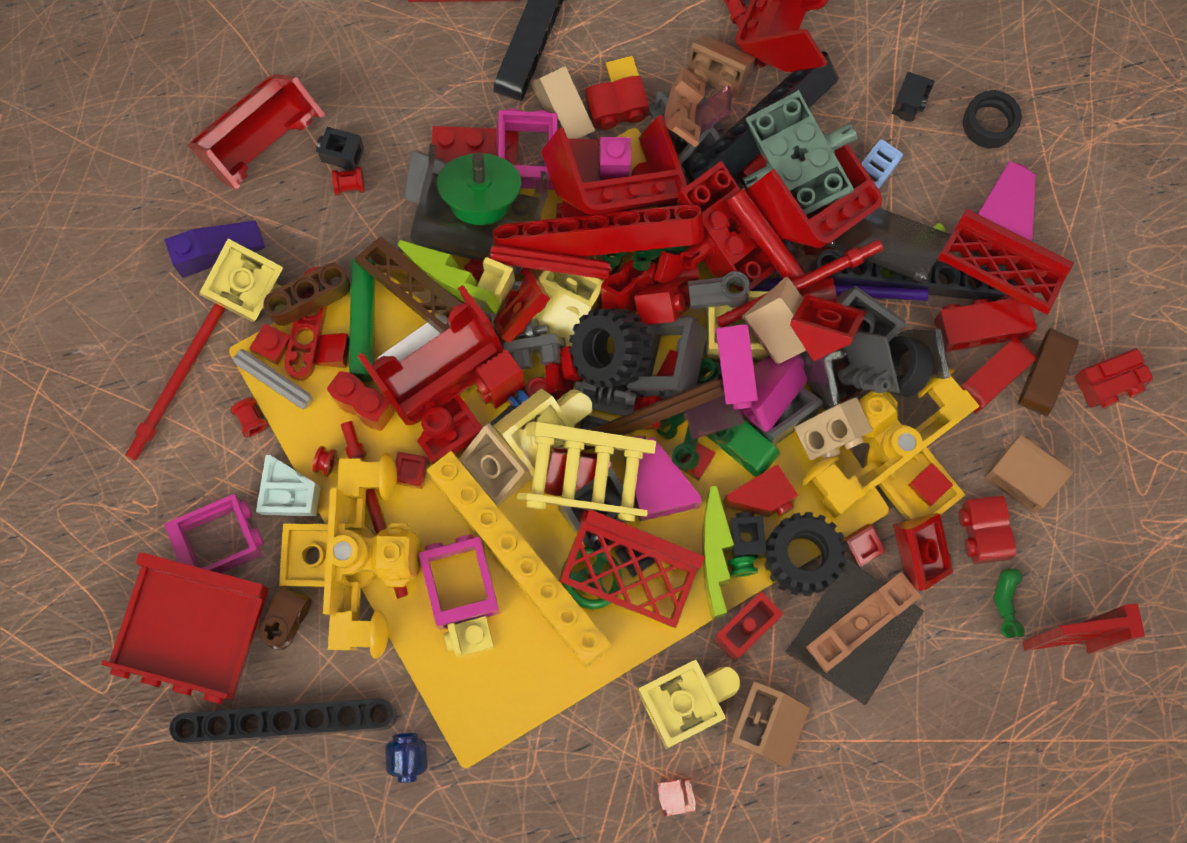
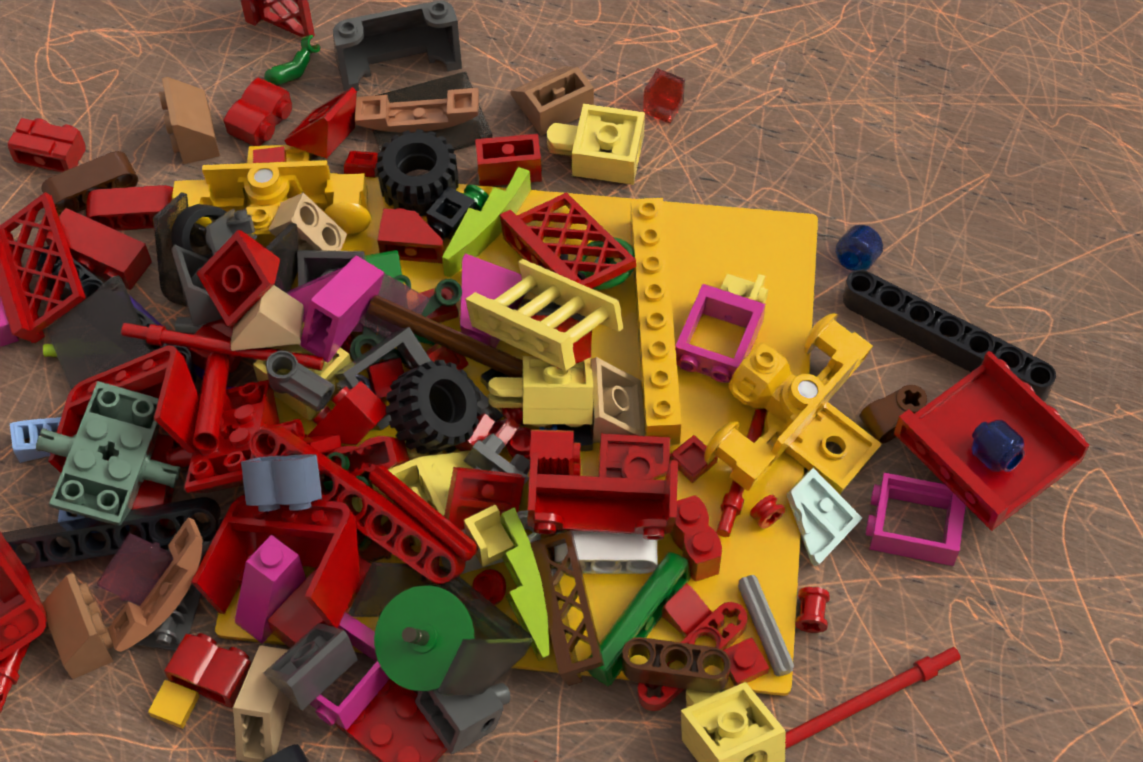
camera: 140 degrees left, 15 degrees down
(173, 617) = (998, 446): none -> clear blue head
(541, 117) = (312, 664): none -> dark grey slope
(651, 194) = (282, 481): none -> sand blue brick
(926, 713) = (395, 35): none -> dark grey windscreen

